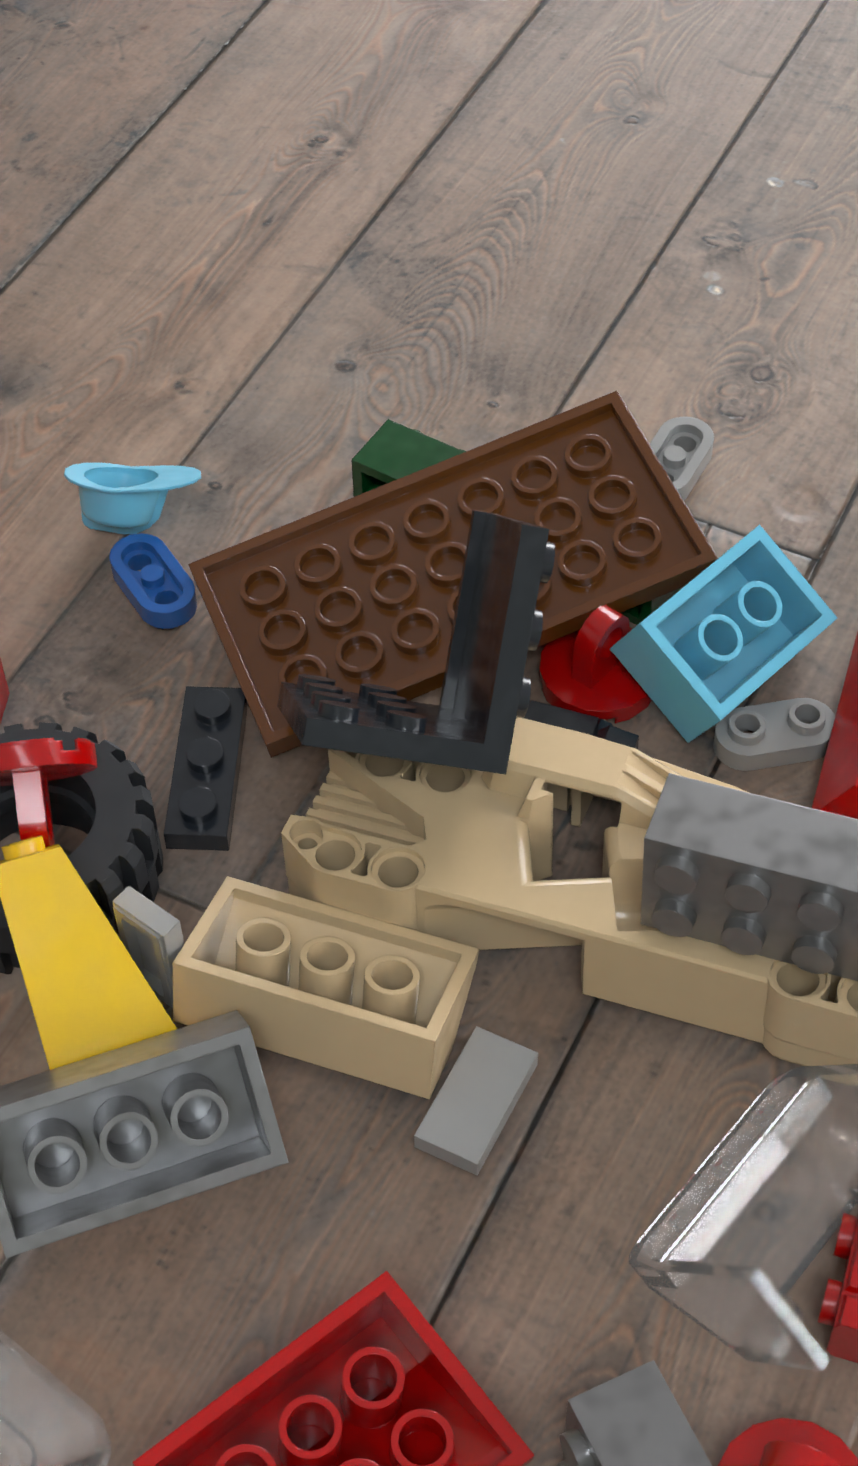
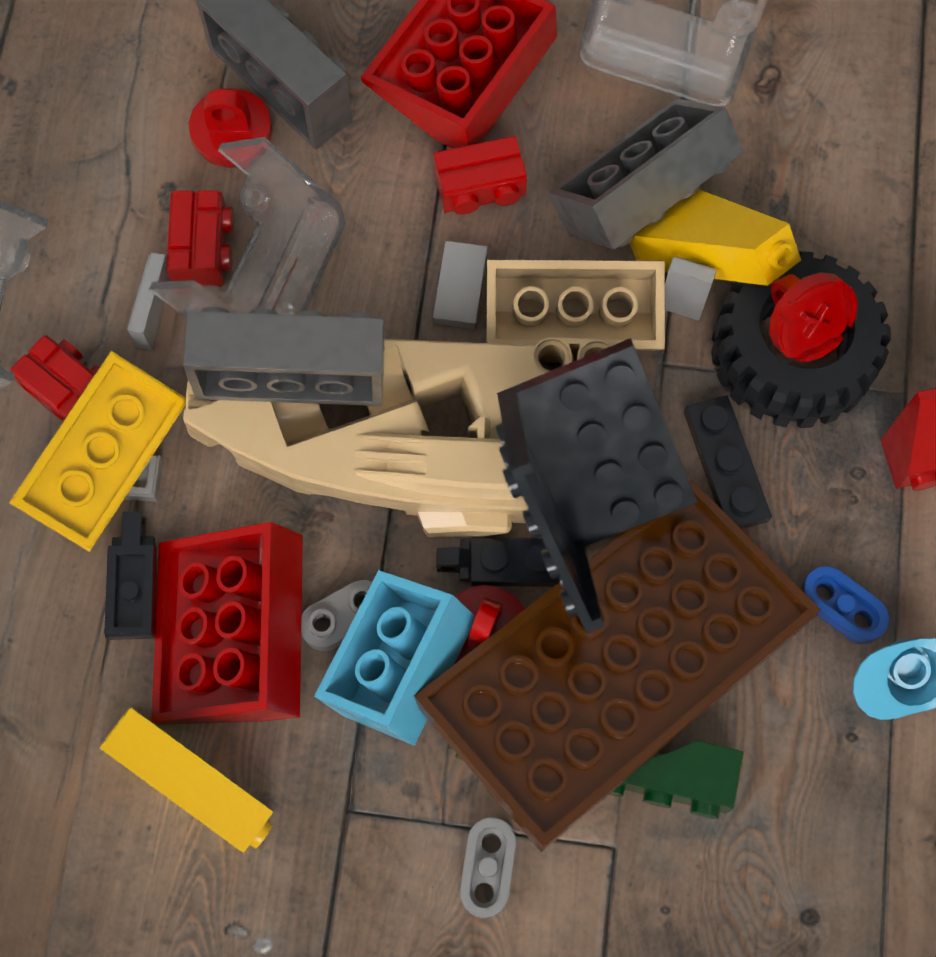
camera: 160 degrees right, 20 degrees up
(362, 1236) = (480, 175): none -> red brick

